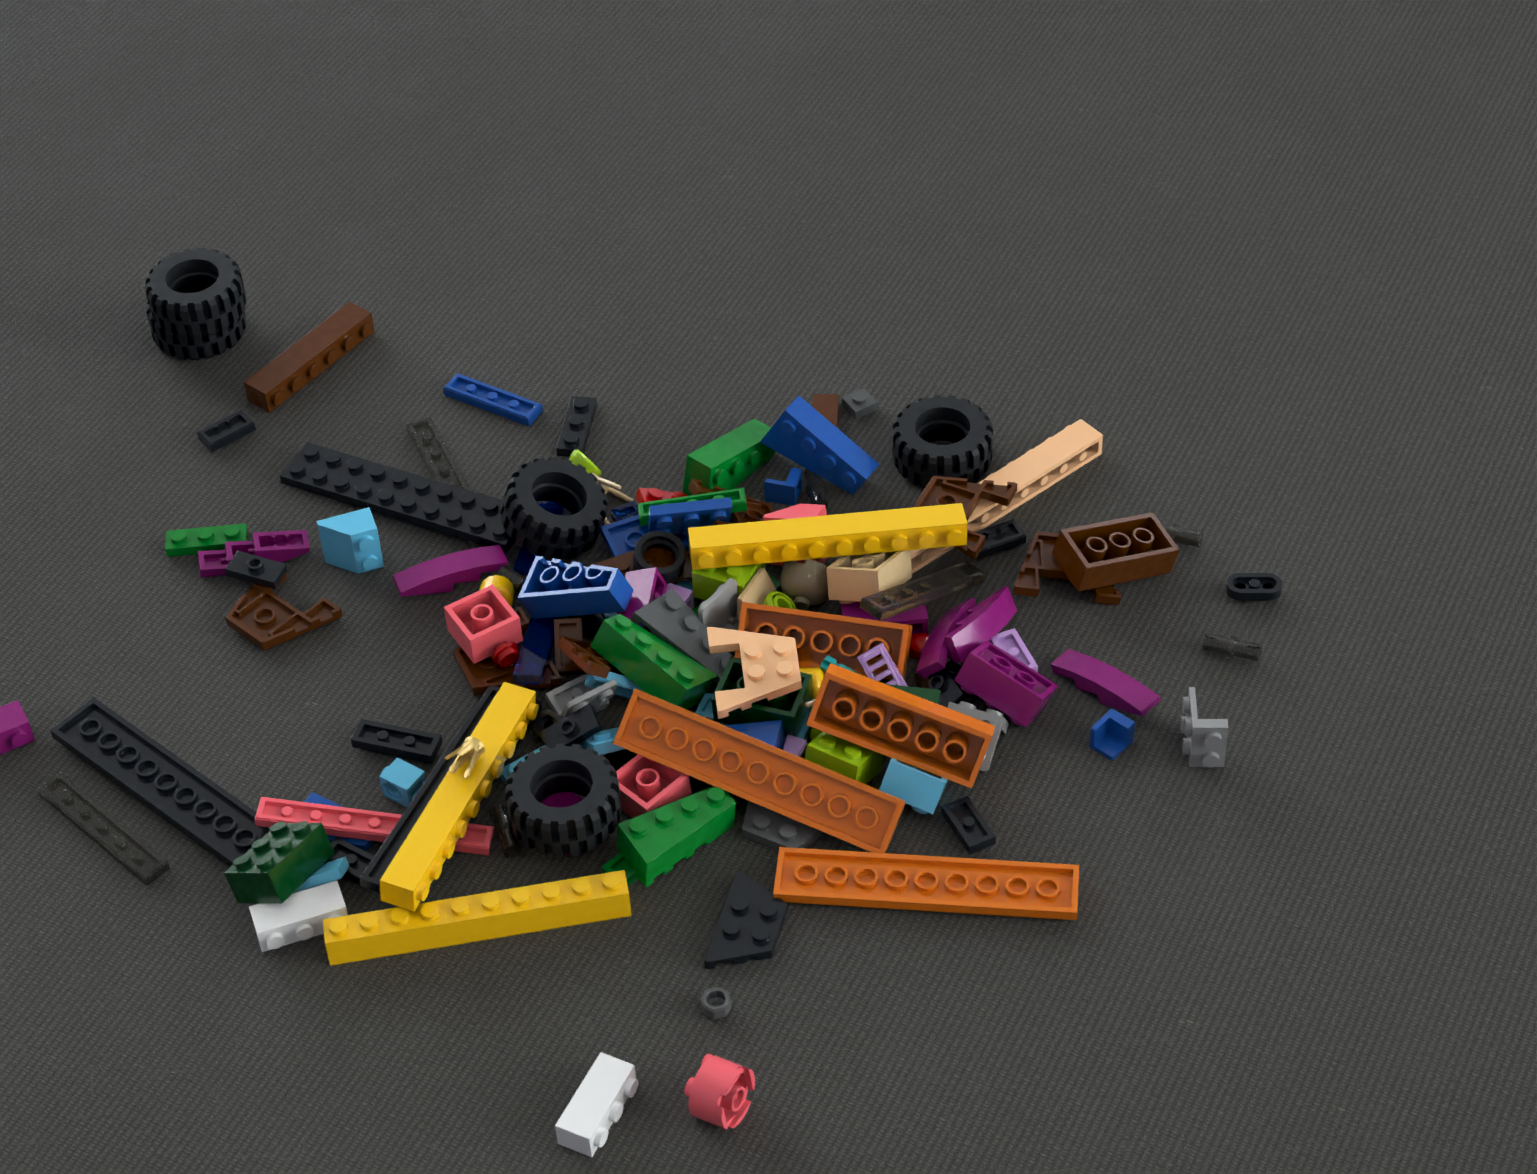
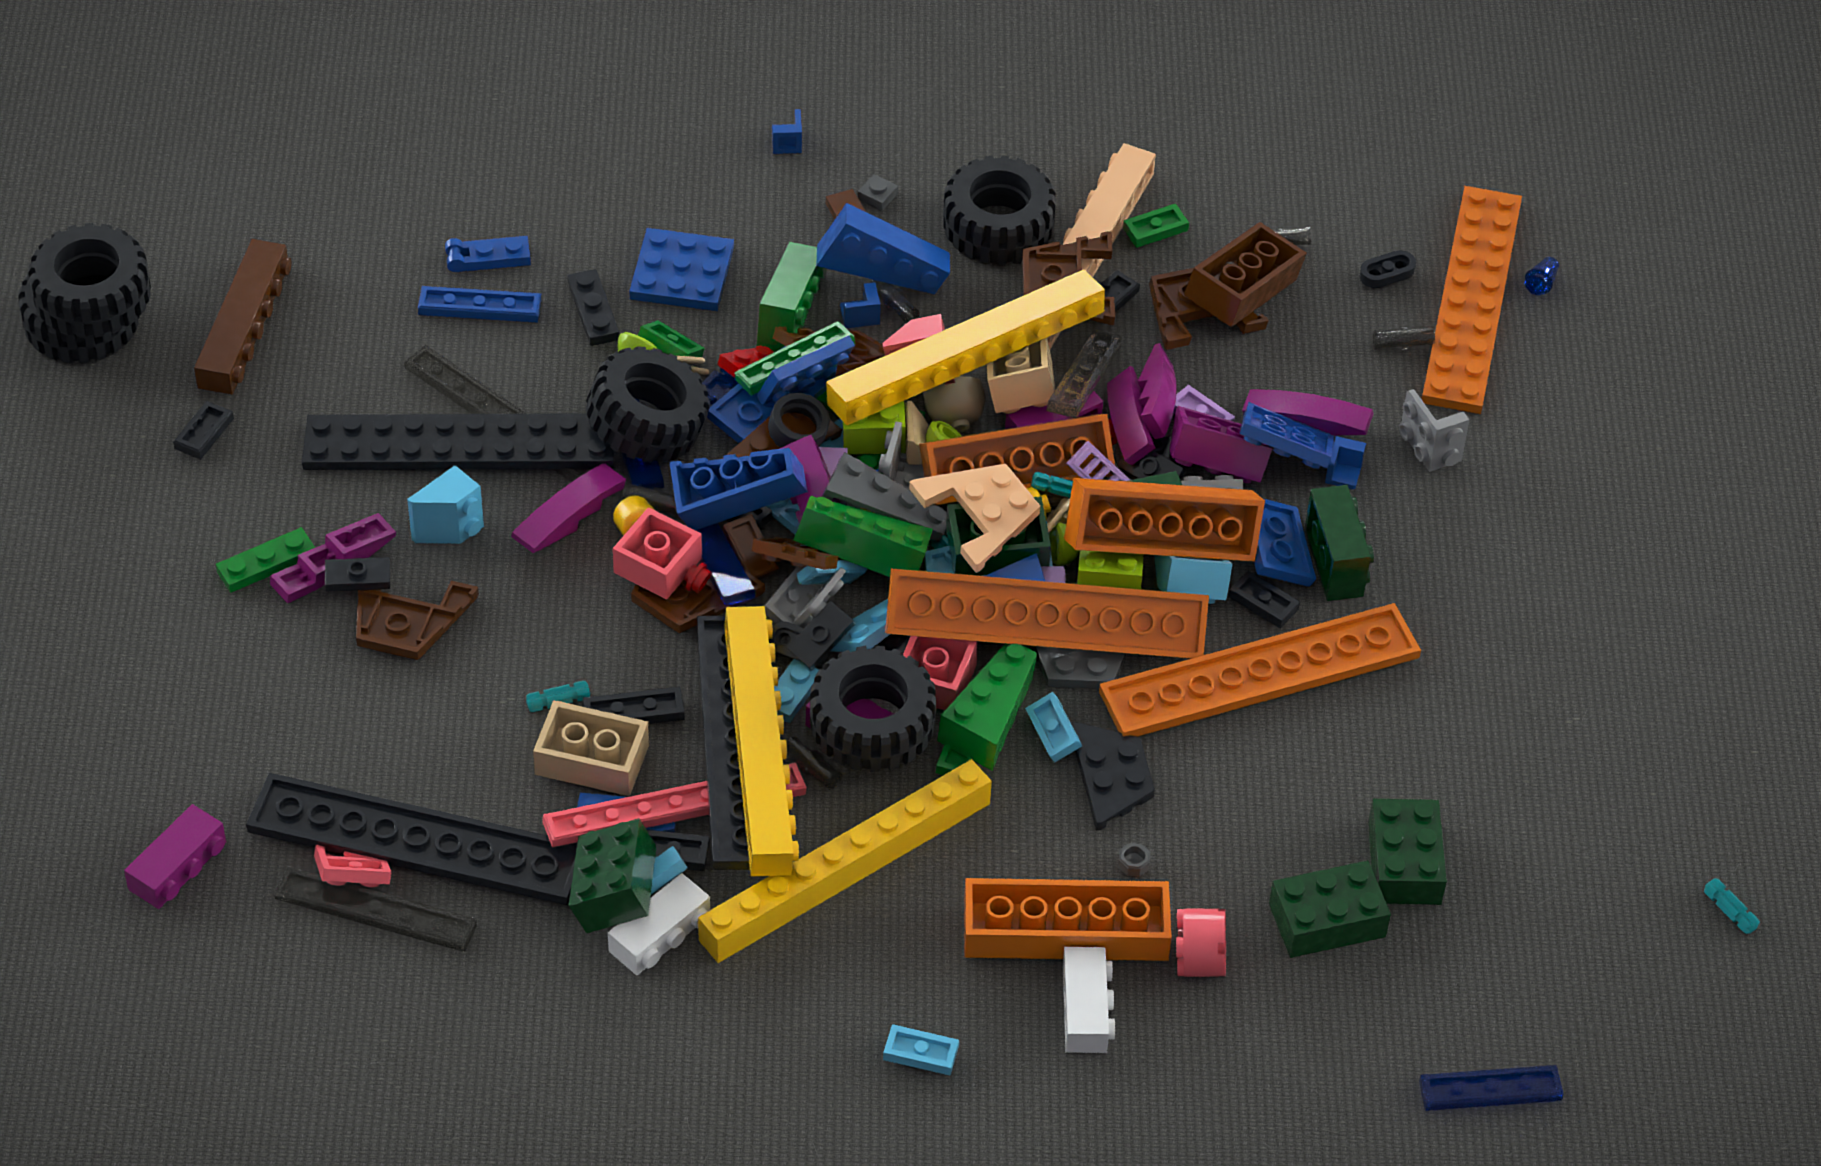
camera: 30 degrees left, 5 degrees up
(94, 787) = (351, 868): none -> coral wing
(337, 759) = (591, 748): none -> tan brick
(346, 712) = (565, 693): none -> teal axle
(401, 781) = (672, 749): medium azure brick -> none
(436, 1095) = (921, 1049): none -> medium azure plate
(470, 750) = (752, 689): pearl gold piece -> none
(524, 364) = (487, 253): none -> blue plate
(599, 1018) = (1046, 915): none -> orange brick
(615, 468) = (670, 340): none -> green plate
(664, 418) = (681, 269): none -> blue plate
(719, 869) = (1053, 727): none -> medium azure plate
(814, 341) = (788, 137): none -> blue panel
(853, 1105) = (1329, 909): none -> dark green brick
(953, 1080) = (1407, 850): none -> dark green brick
(1007, 779) = (1283, 546): none -> blue plate
(1056, 797) = (1338, 542): none -> dark green brick
(1063, 692) = (1287, 436): none -> blue plate
(1072, 493) = (1155, 225): none -> green plate
(1316, 635) = (1472, 300): none -> orange plate
(1391, 633) = (1542, 276): none -> clear blue cone

